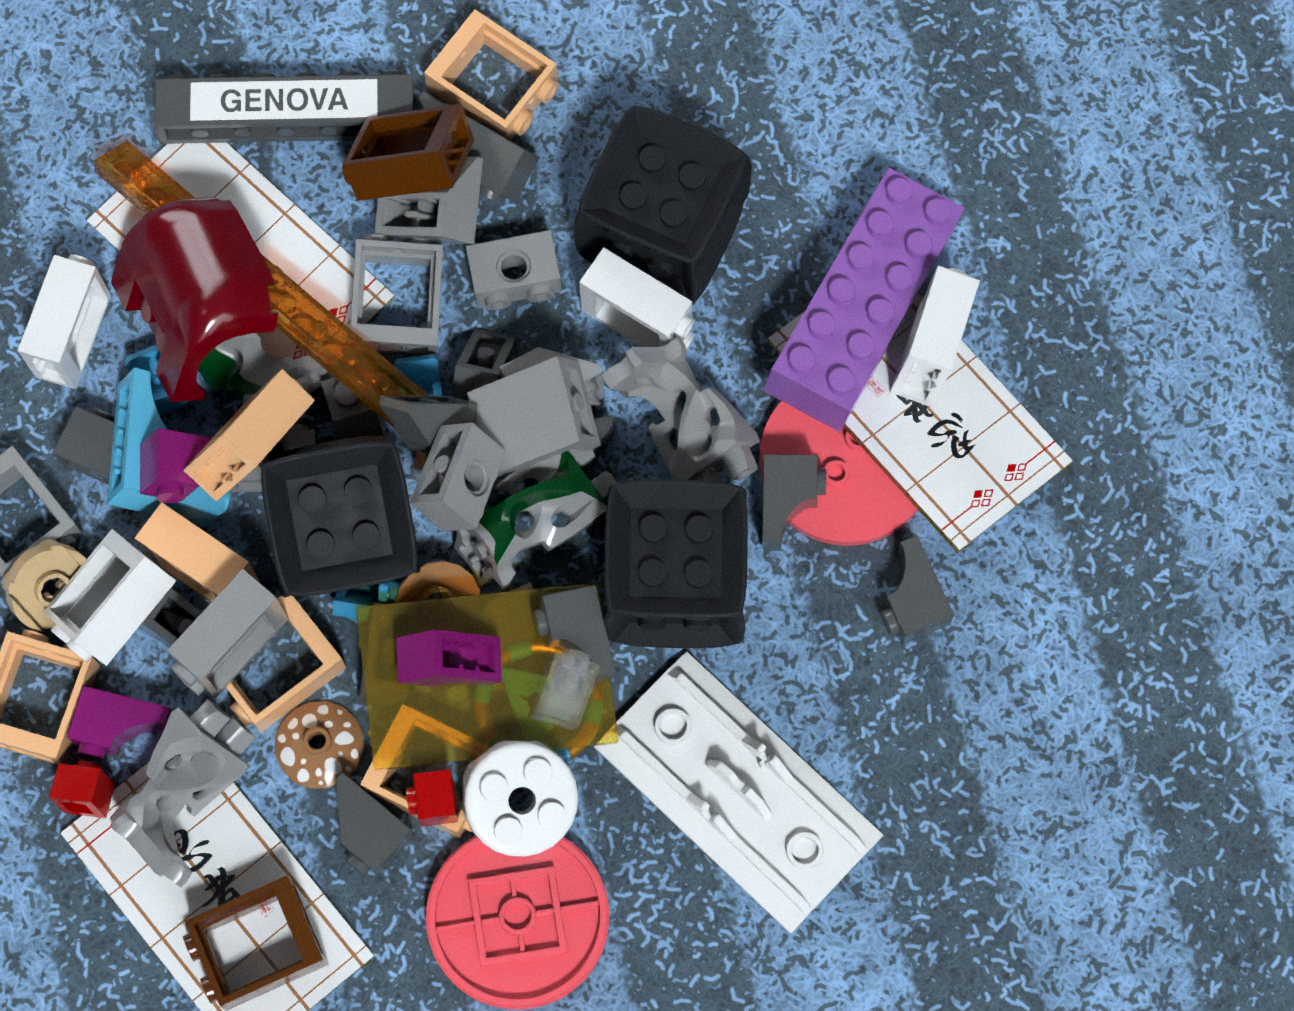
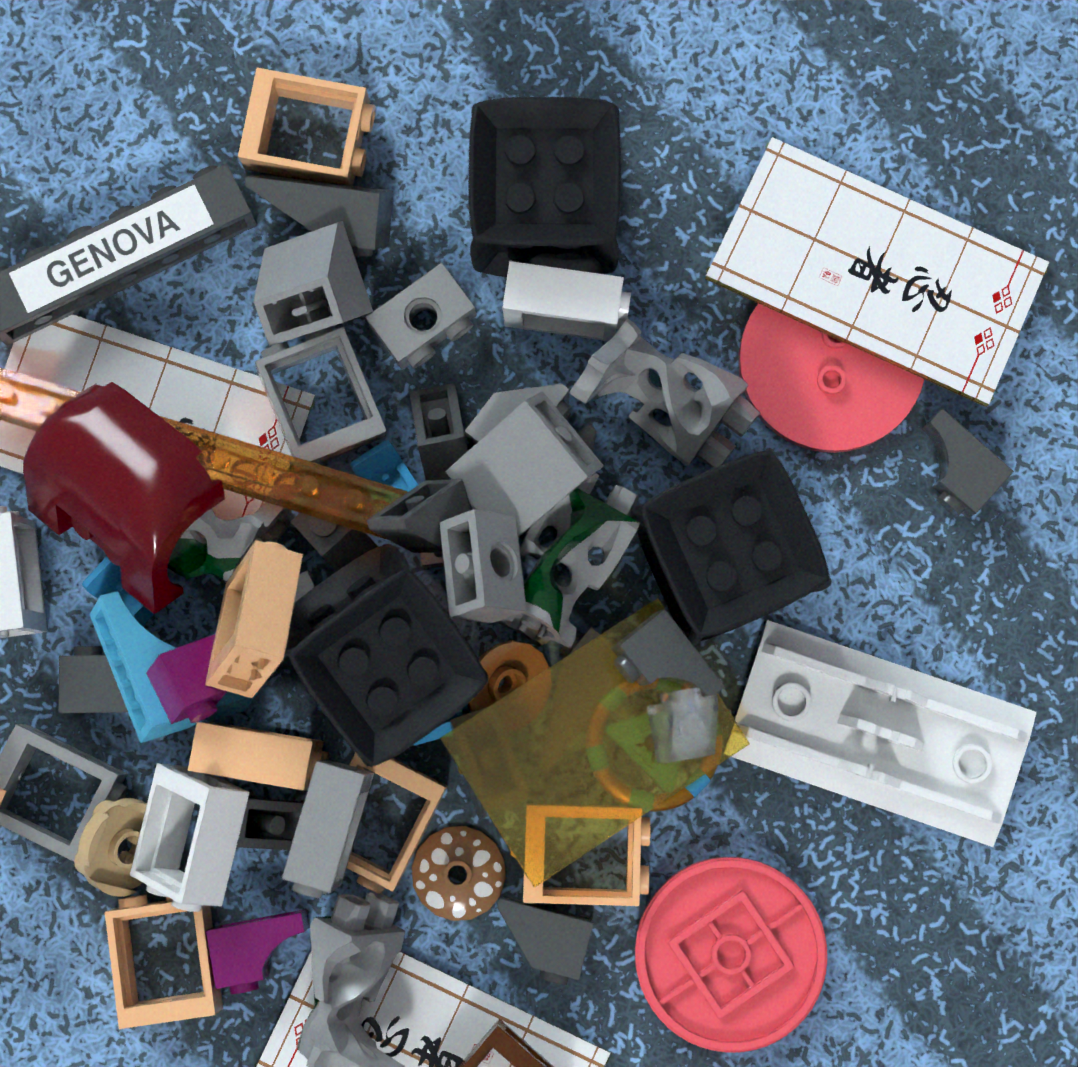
camera: 20 degrees left, 10 degrees up
(82, 789) = (254, 1027): red plate -> none
(408, 152) = (280, 212): reddish brown window -> none
(433, 798) = (604, 889): red plate -> none
(448, 658) = (557, 750): magenta arch -> none
(493, 778) = (661, 829): white plate -> none
(788, 489) = (795, 420): dark grey arch -> none
(863, 300) = (784, 194): medium lavender brick -> none
(935, 335) = (872, 200): white window -> none

